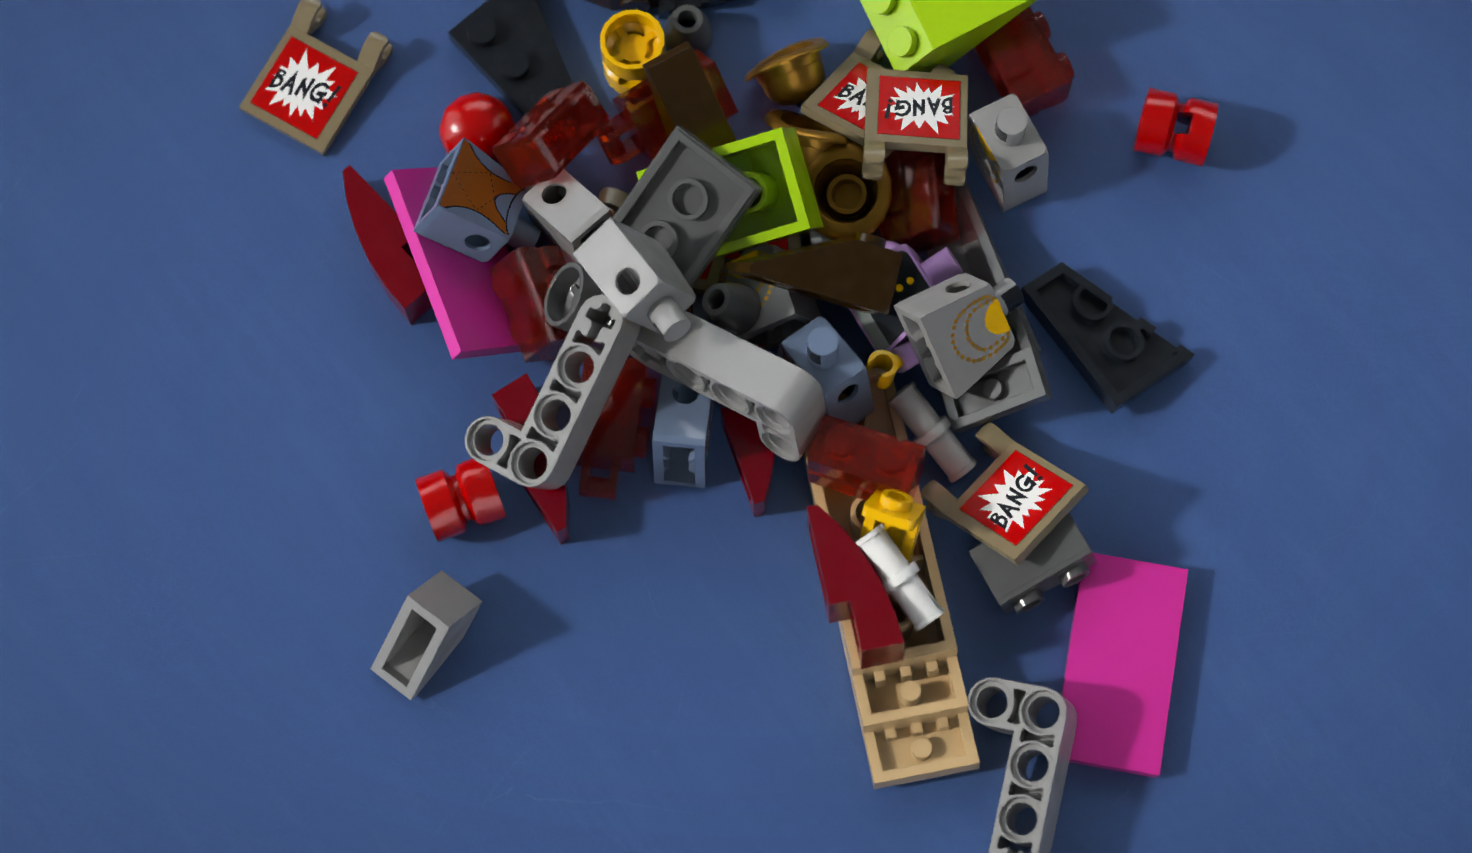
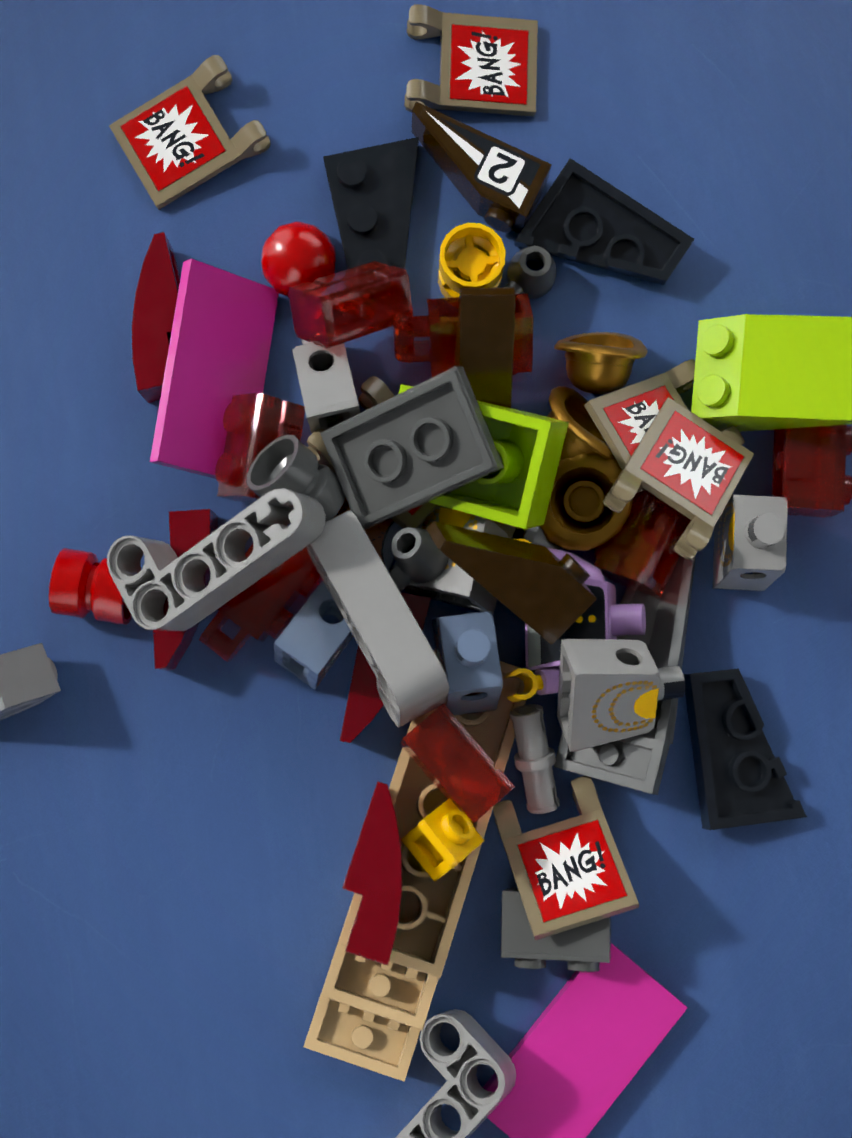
camera: 20 degrees right, 10 degrees up
(474, 206) = (248, 332): sand blue torso -> none
(638, 278) = (336, 494): light grey torso -> none
(900, 577) = (423, 892): white pin -> none

